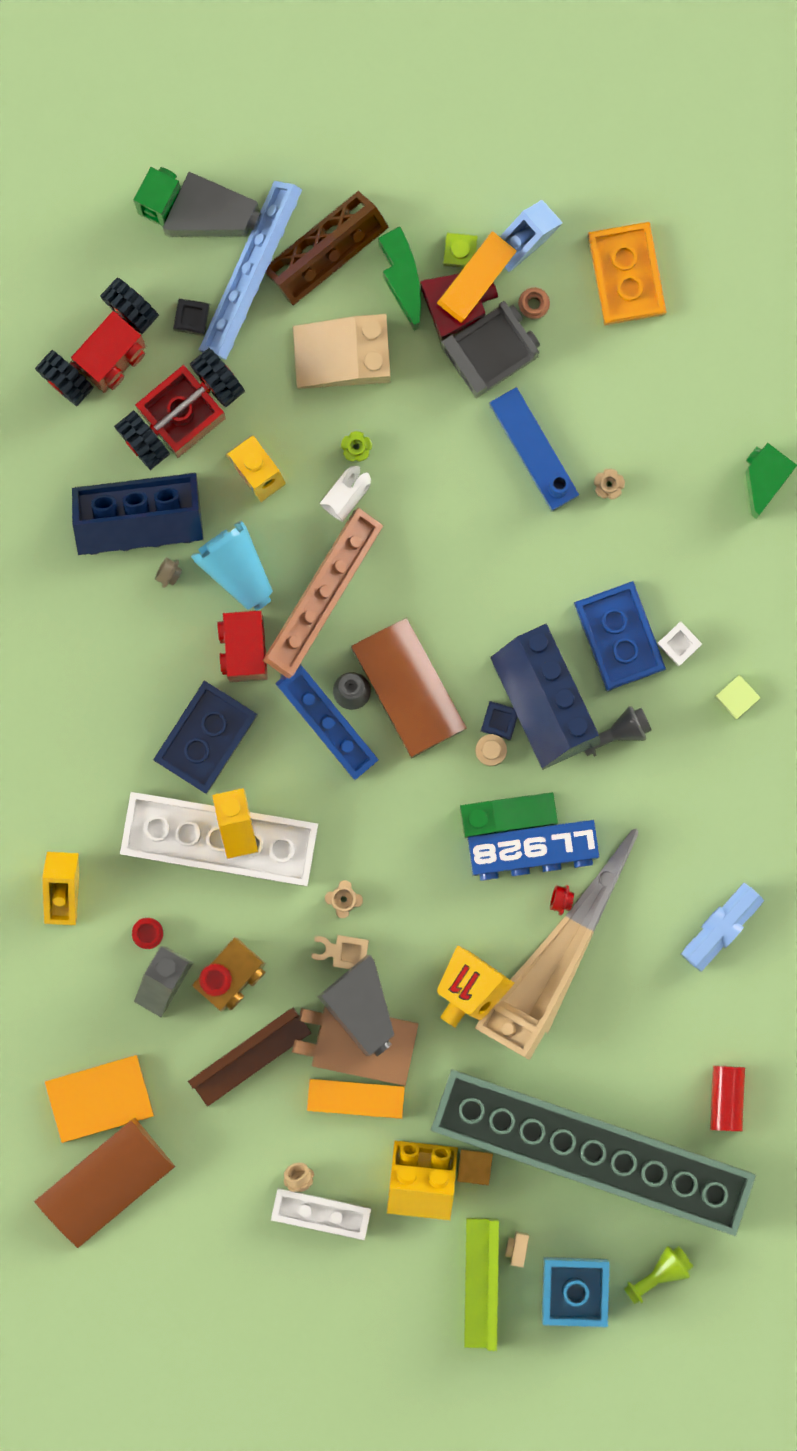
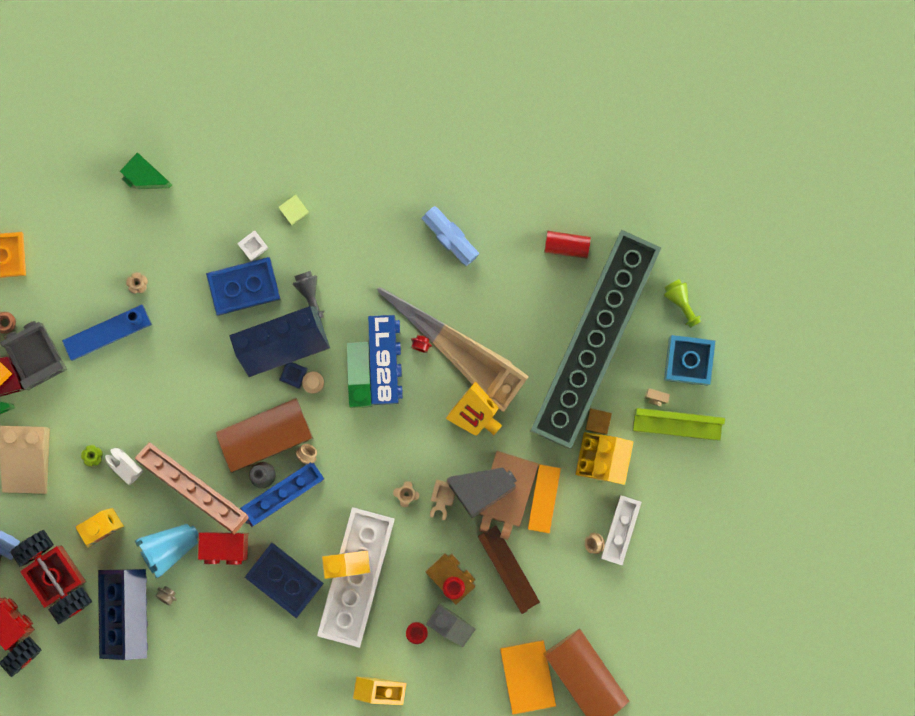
camera: 85 degrees left, 0 degrees up
(387, 751) = (306, 454): none -> tan plate

